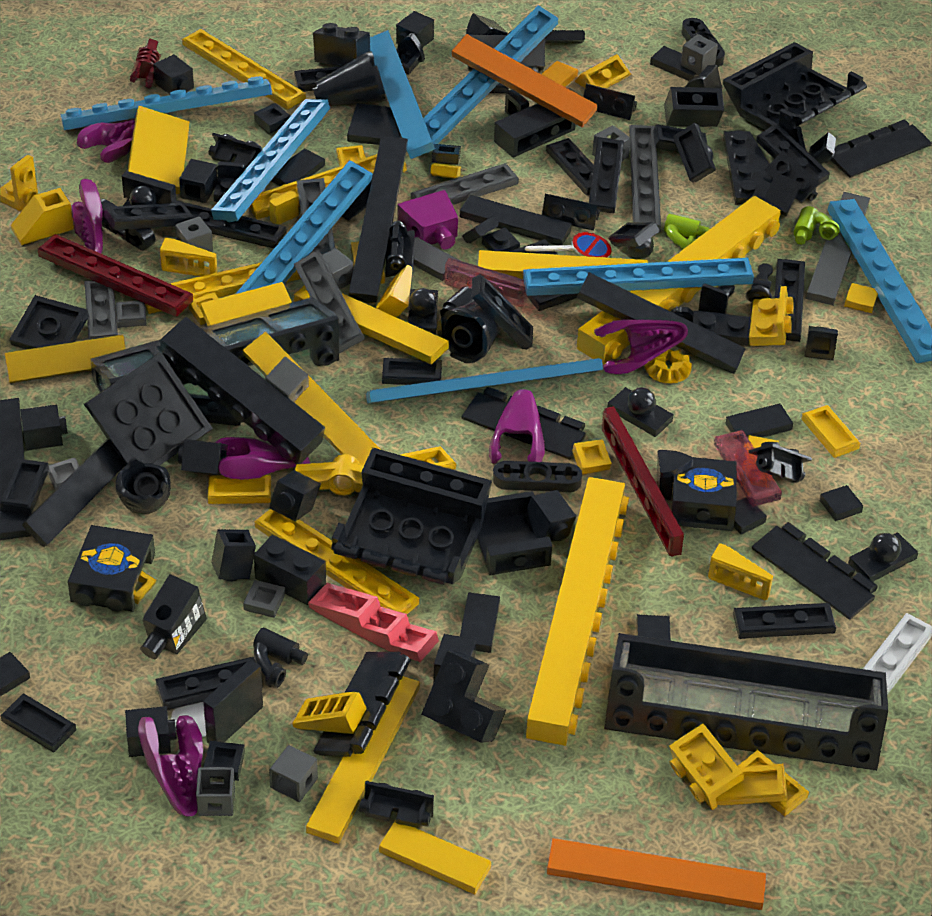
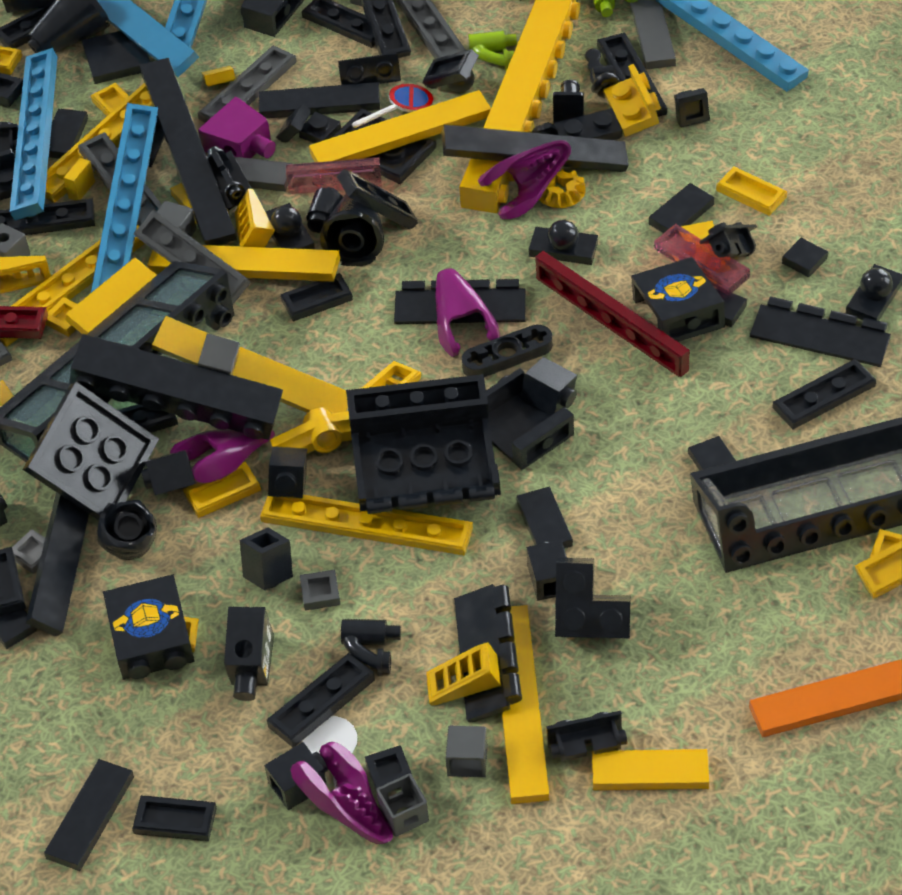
camera: 20 degrees left, 5 degrees up
(233, 703) = (368, 708): black tile -> none
(291, 568) = (331, 547): black brick -> none
(379, 625) = (435, 565): coral slope -> none
(446, 154) = (209, 58): black tile -> none
(484, 380) = (394, 278): dark azure tile -> none
(577, 614) = (633, 471): yellow brick -> none
(591, 456) = (546, 309): yellow tile -> none
(641, 275) = (485, 109): dark azure tile -> none
(668, 465) = (633, 287): black tile -> none
(704, 765) = (847, 566): yellow bracket -> none
(734, 569) = (748, 365): yellow slope -> none
(861, 298) = (698, 48): yellow tile -> none

